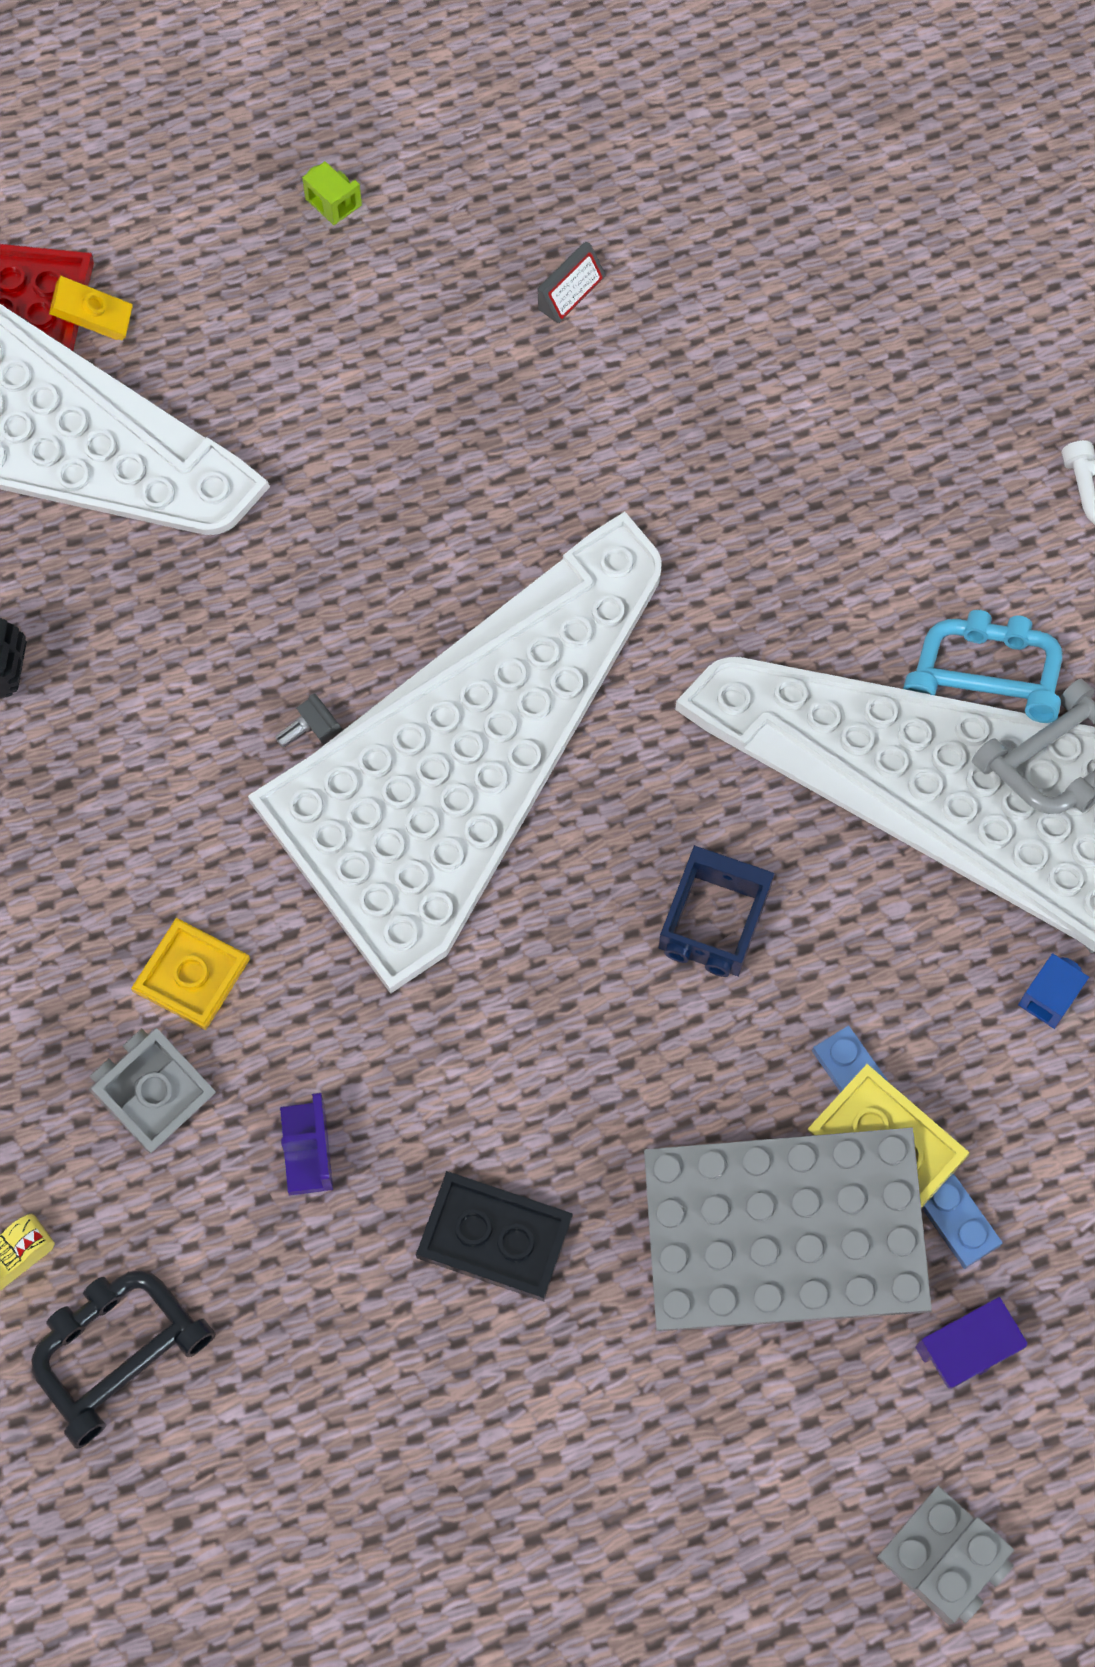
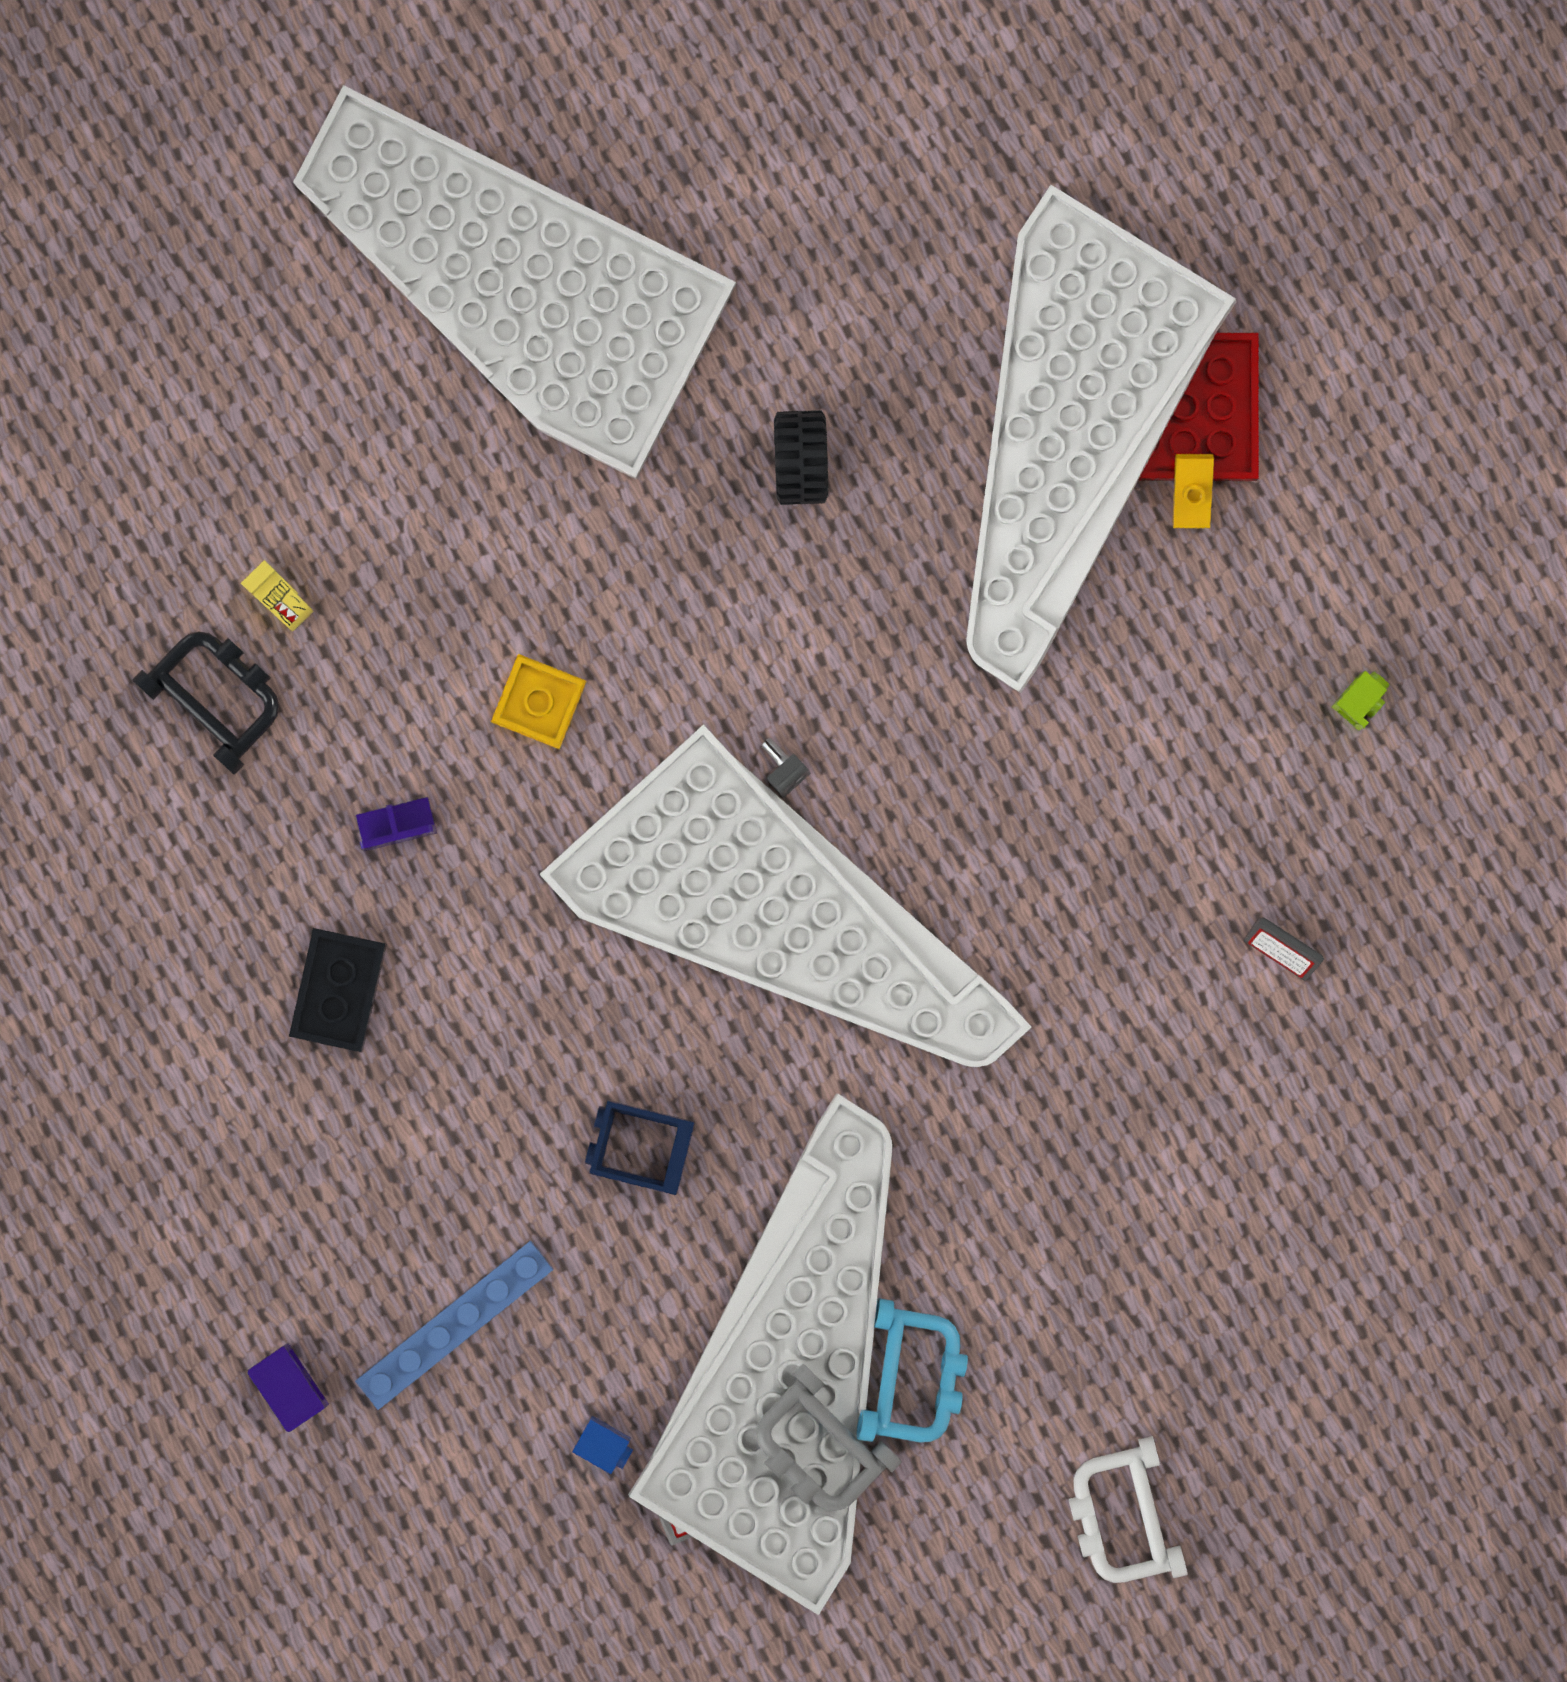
camera: 85 degrees right, 20 degrees up
(150, 1088) = (429, 686): light grey plate -> none
(786, 1230) = (363, 1229): light grey plate -> none
(874, 1105) = (445, 1309): light yellow plate -> none
(947, 1557) = (122, 1376): light grey plate -> none

